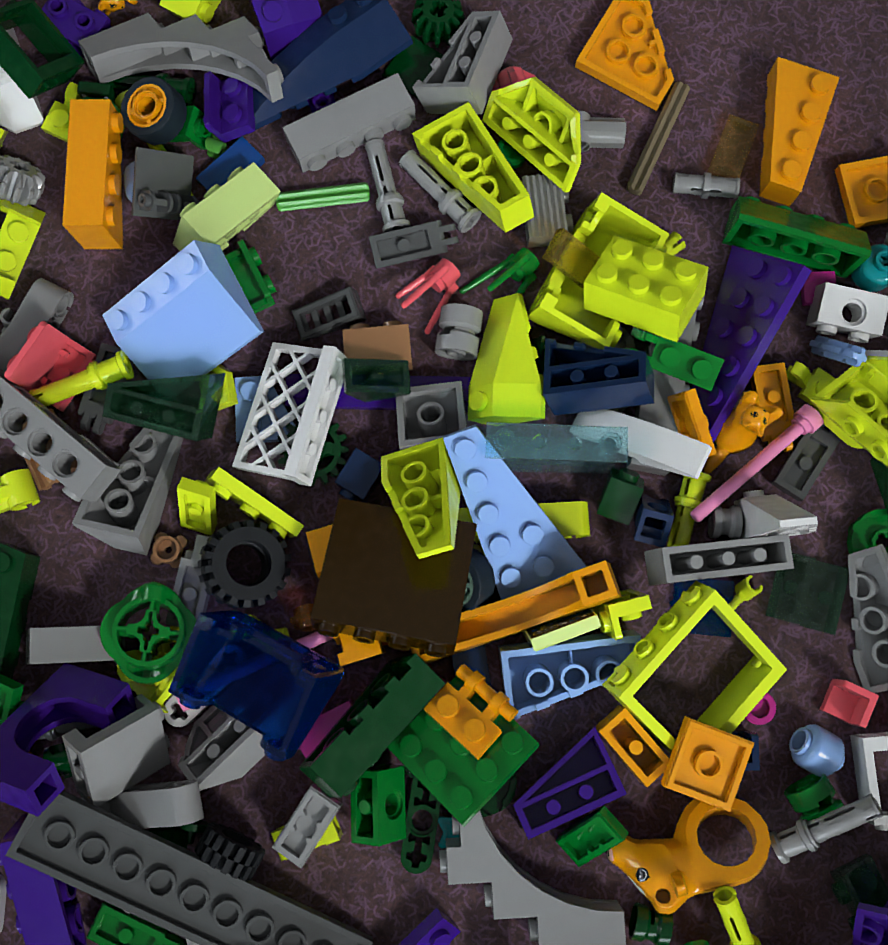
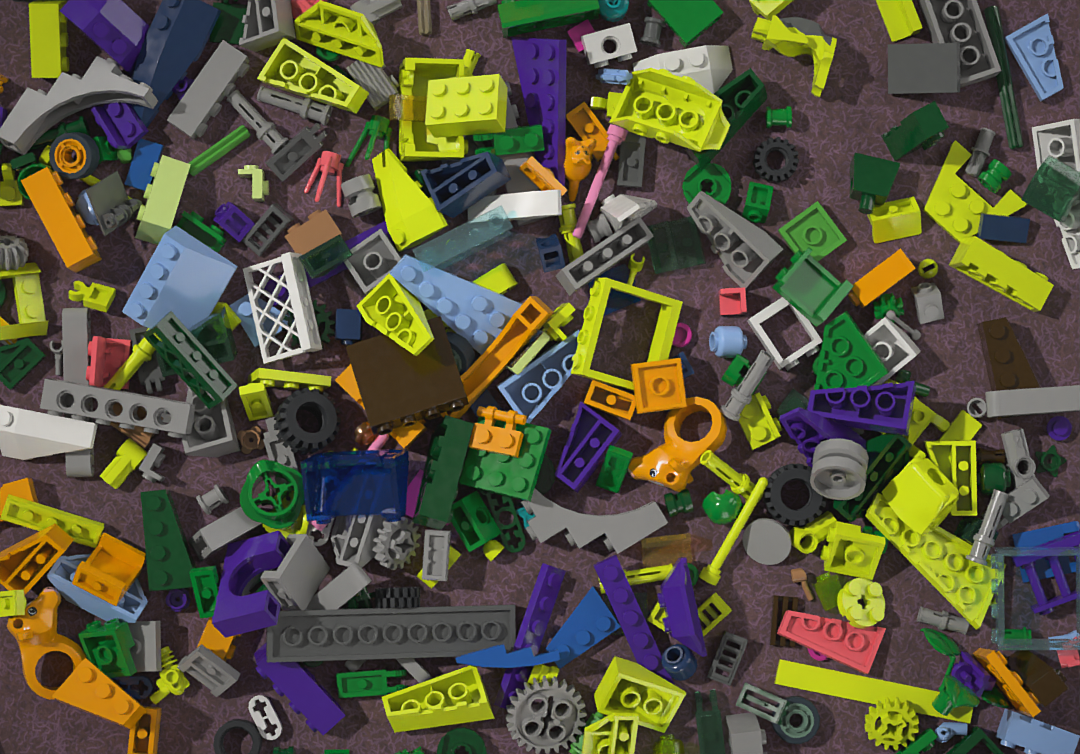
camera: 30 degrees left, 5 degrees up
(38, 509) = (153, 458): none -> light grey bracket
(80, 596) = (212, 499): none -> light grey bush
(87, 286) = (95, 297): none -> neon yellow plate
(142, 411) = (192, 358): none -> dark green fence
(265, 781) = (396, 543): none -> light grey gear
(294, 283) = (233, 221): none -> dark purple bracket
(347, 257) = (259, 185): none -> yellowish green bracket
(384, 854) = (492, 549): none -> neon yellow hinge
(620, 495) = (522, 247): dark green brick -> none
(807, 880) = (758, 423): none -> neon yellow bracket

